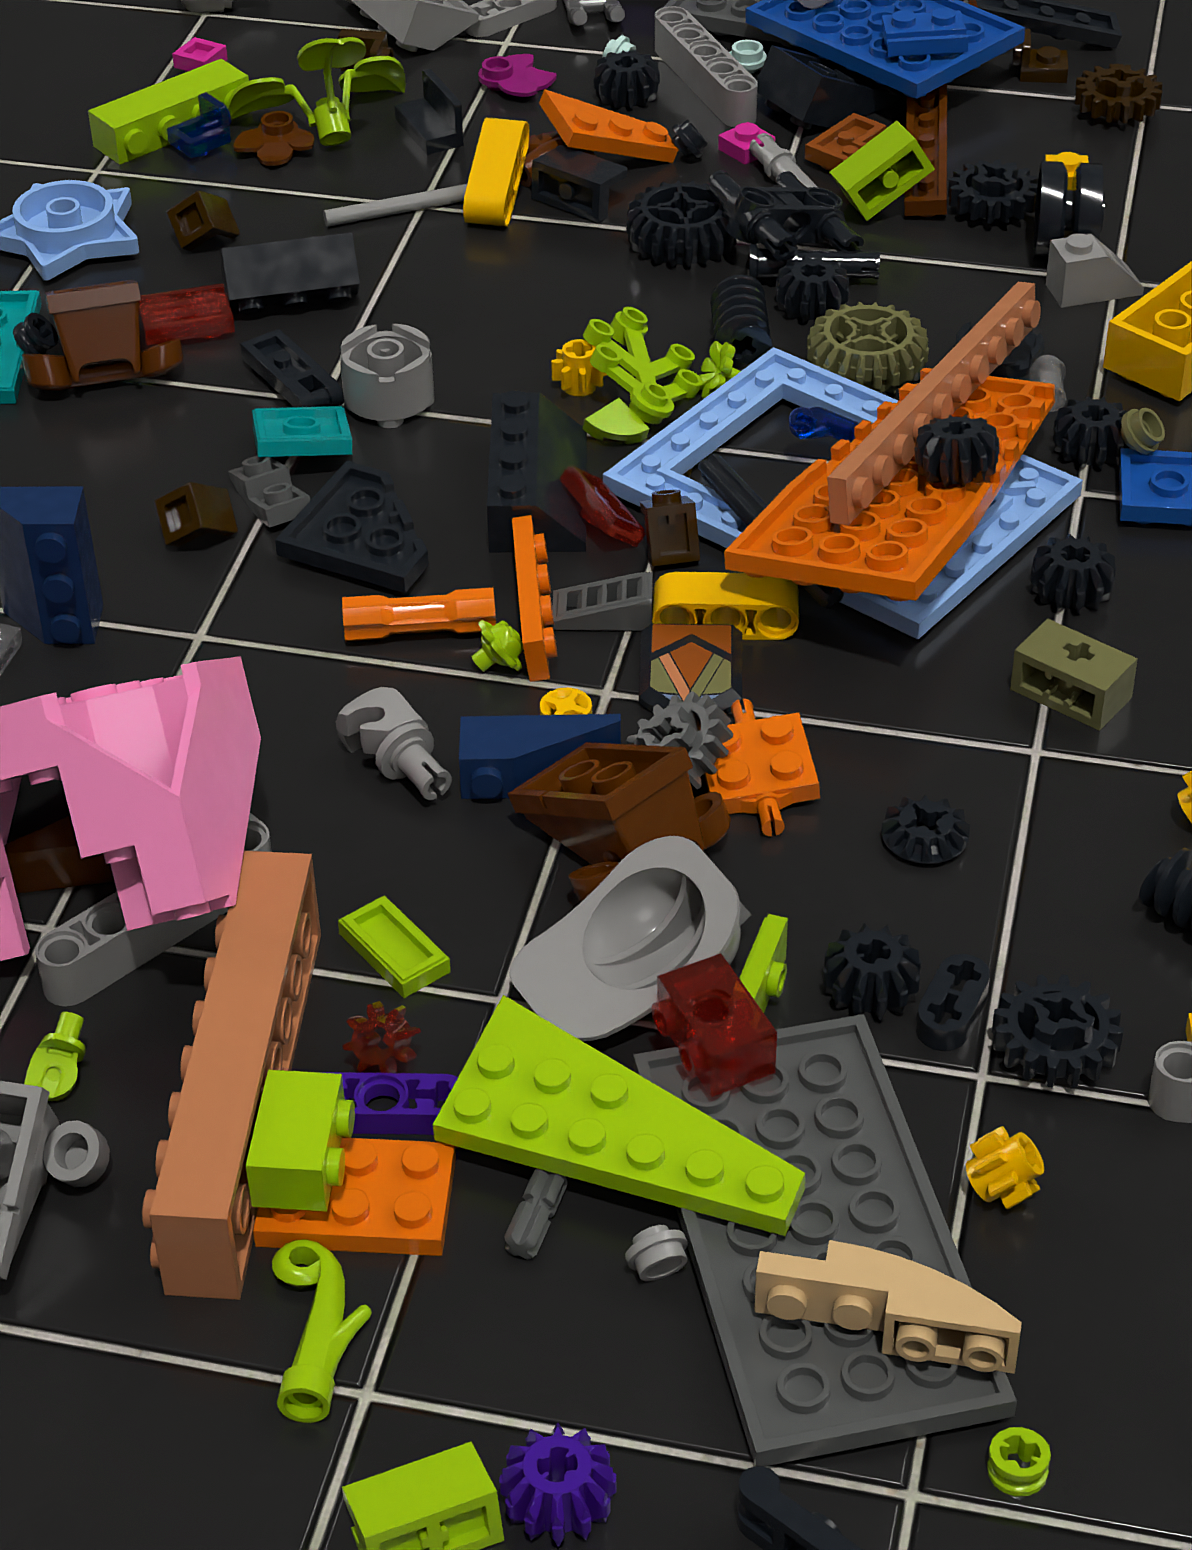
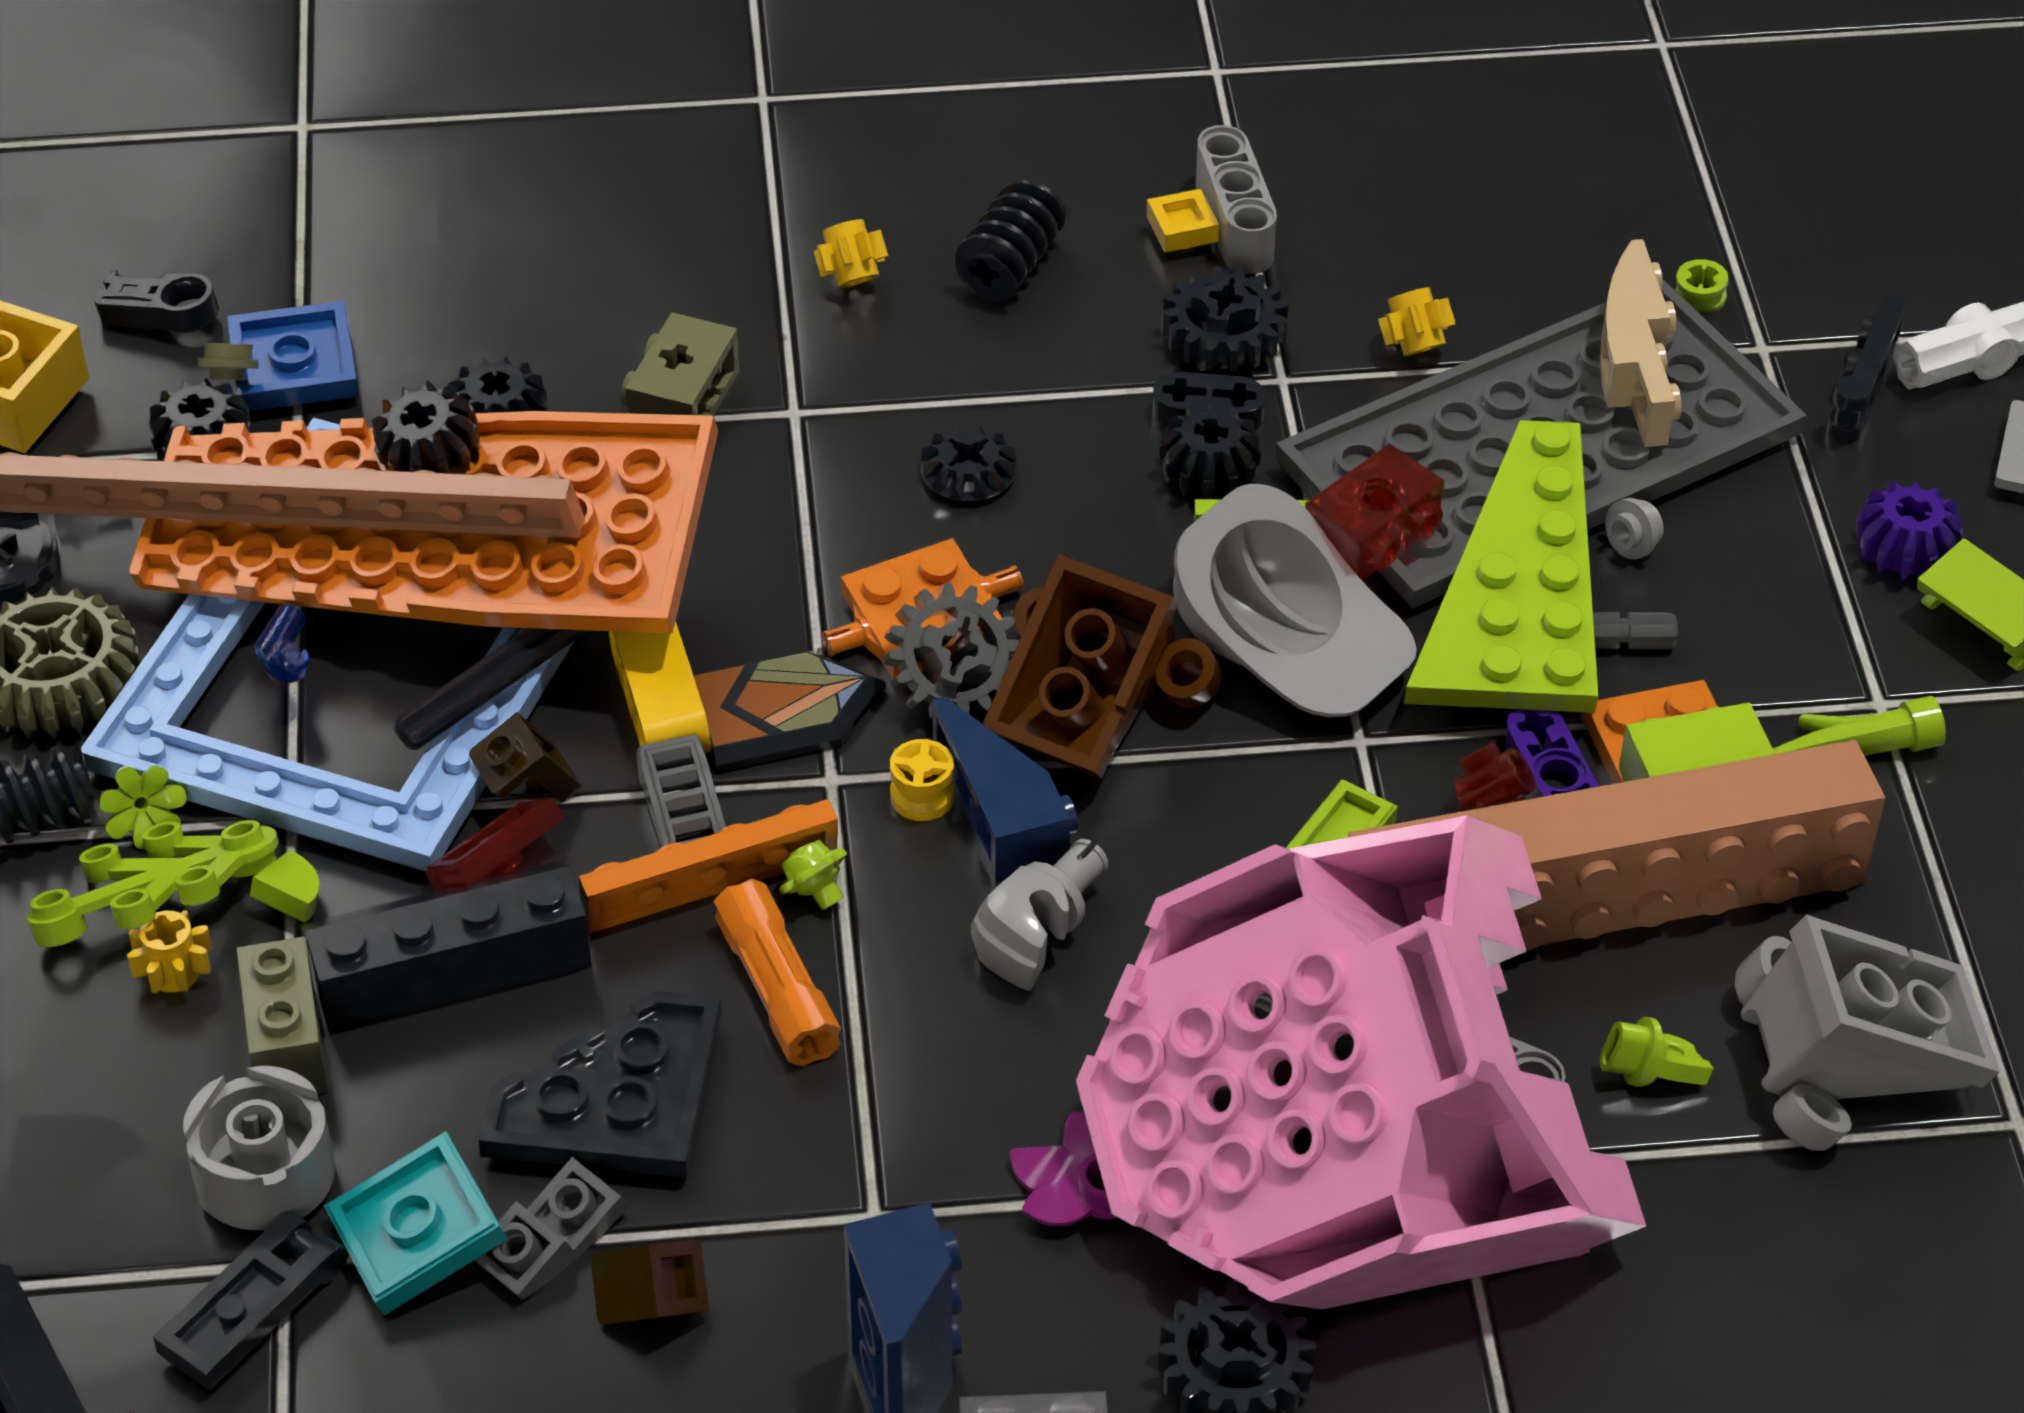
camera: 110 degrees left, 5 degrees up
(470, 390) = (282, 1009): none -> olive brick

